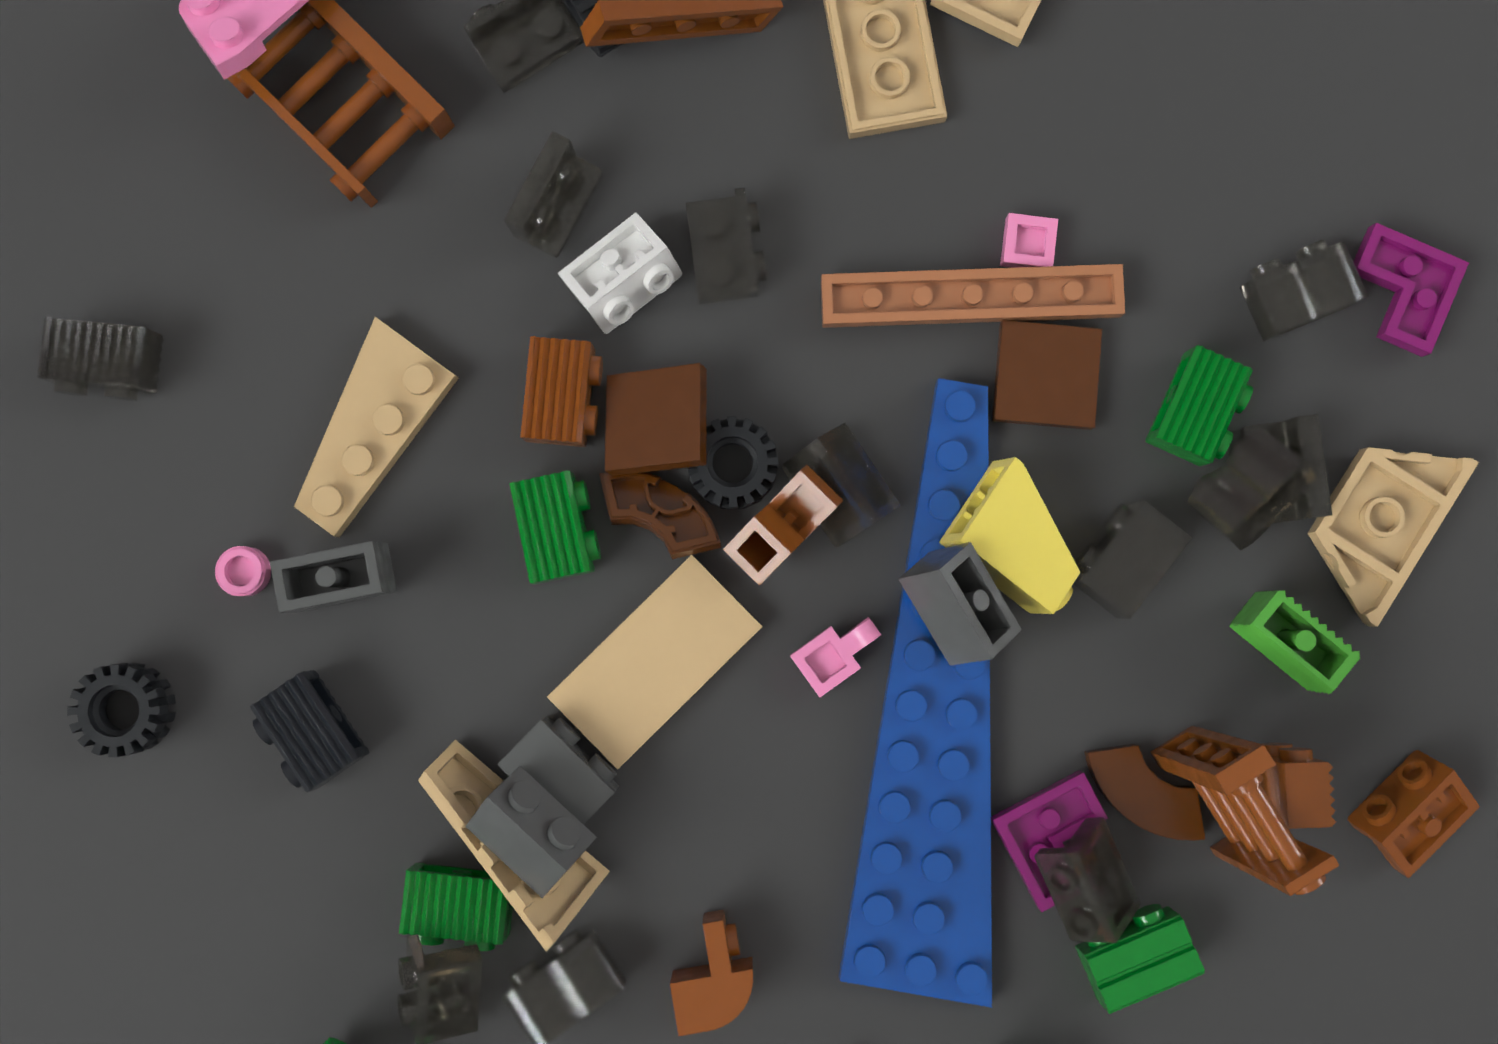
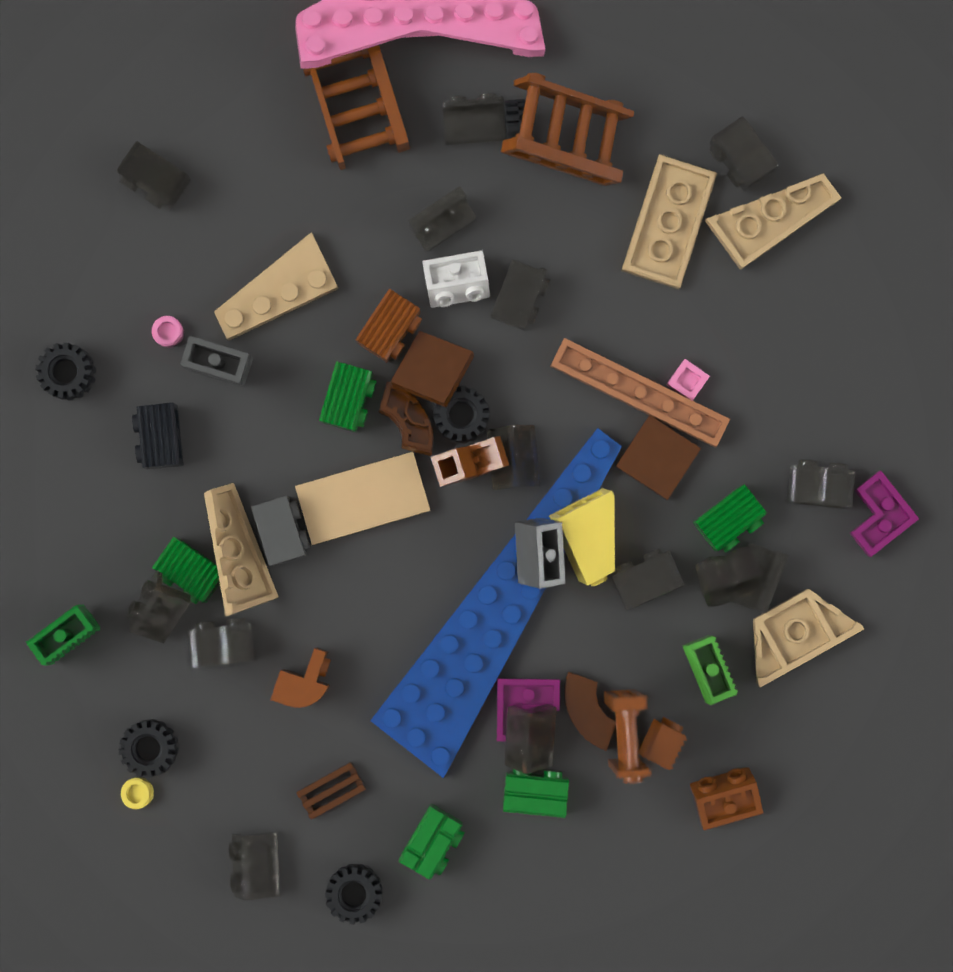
camera: 25 degrees right, 0 degrees up
(530, 831) = (250, 550): dark grey brick -> none
(830, 658) = (457, 546): bright pink plate -> none

